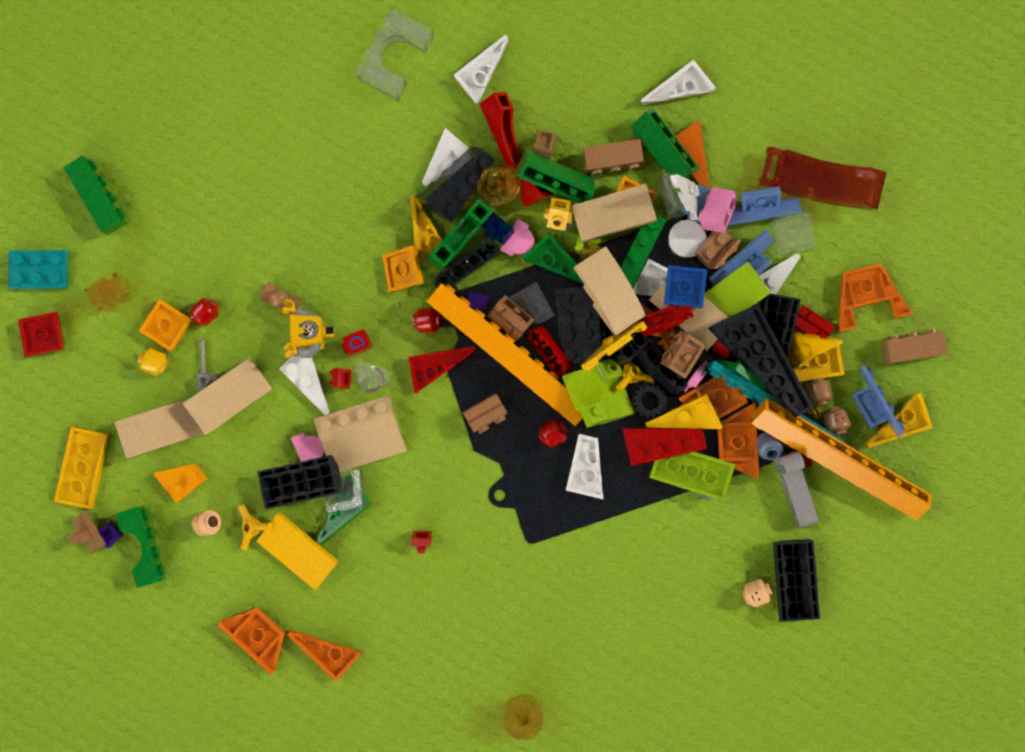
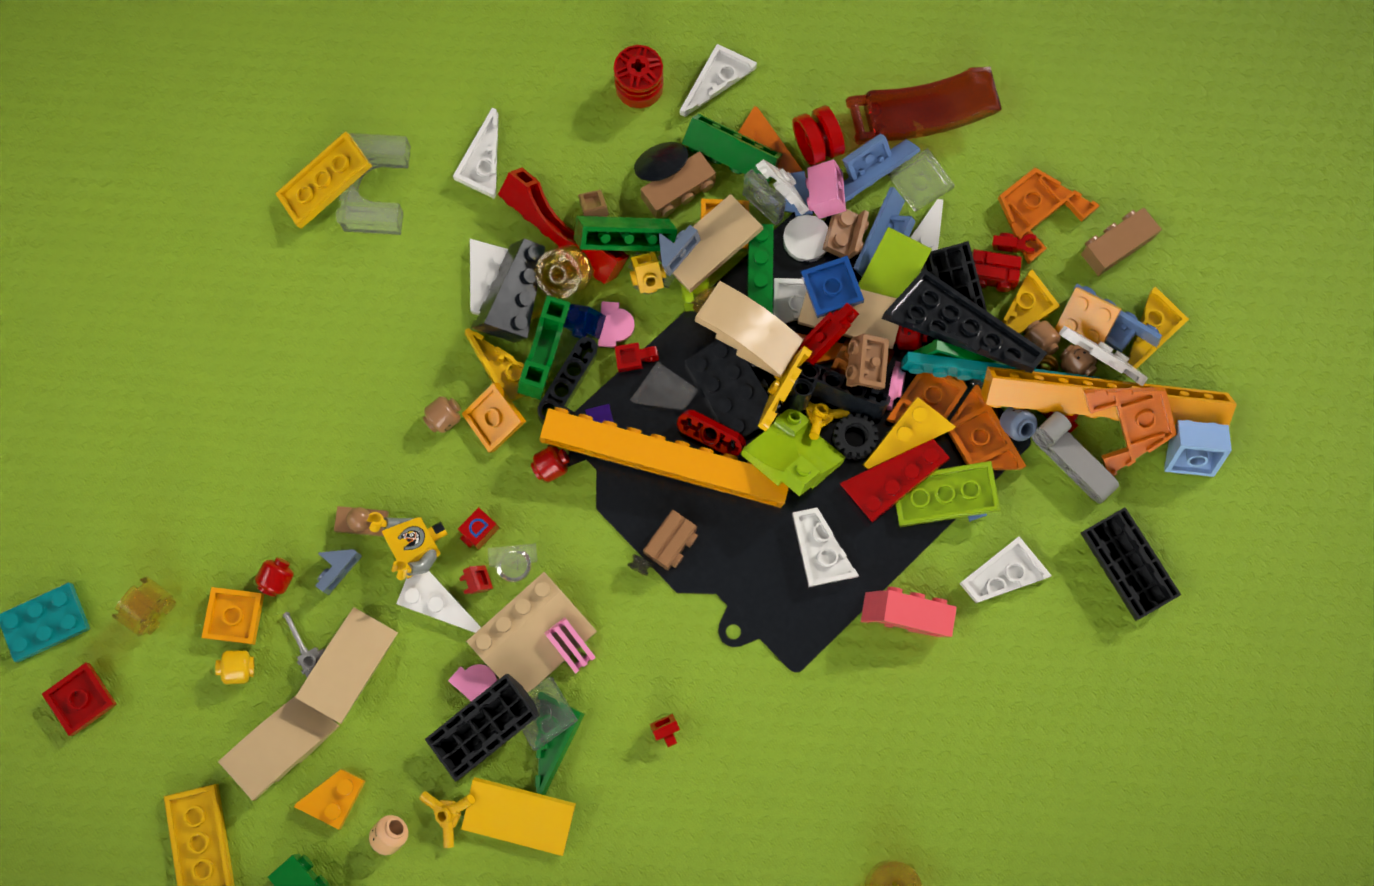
camera: 30 degrees left, 10 degrees down
(95, 195) = (80, 500): green brick -> none
(252, 324) = (342, 562): none -> sand blue slope
(359, 36) = (323, 180): none -> yellow tile
(368, 249) = (442, 414): none -> medium nougat head
(387, 467) = (582, 661): none -> bright pink tile
(430, 366) = (579, 516): red wing -> none
(457, 420) = (640, 564): none -> clear smoke bush
(510, 318) = (648, 415): medium nougat brick -> none
(520, 268) = (631, 356): none -> red plate
(552, 257) = (665, 326): green wing -> none
(553, 433) = (762, 526): red head -> none
(582, 210) = (674, 253): none -> sand blue slope
(609, 133) = (661, 161): none -> black shield
(623, 70) = (642, 87): none -> red wheel
(624, 541) = (909, 612): none -> coral wedge
(707, 543) = (1004, 572): none -> white wing
(732, 167) = (818, 135): none -> red wheel
(757, 593) = (1093, 600): light nougat head -> none
(808, 346) = (1005, 288): yellow wing -> none
(831, 310) = (1008, 243): none -> red plate
(856, 427) = (1104, 353): none -> white wing
(858, 394) = (1088, 316): none -> light orange plate
(858, 486) = (1143, 418): none -> orange wing
(887, 523) = (1198, 448): none -> light blue slope

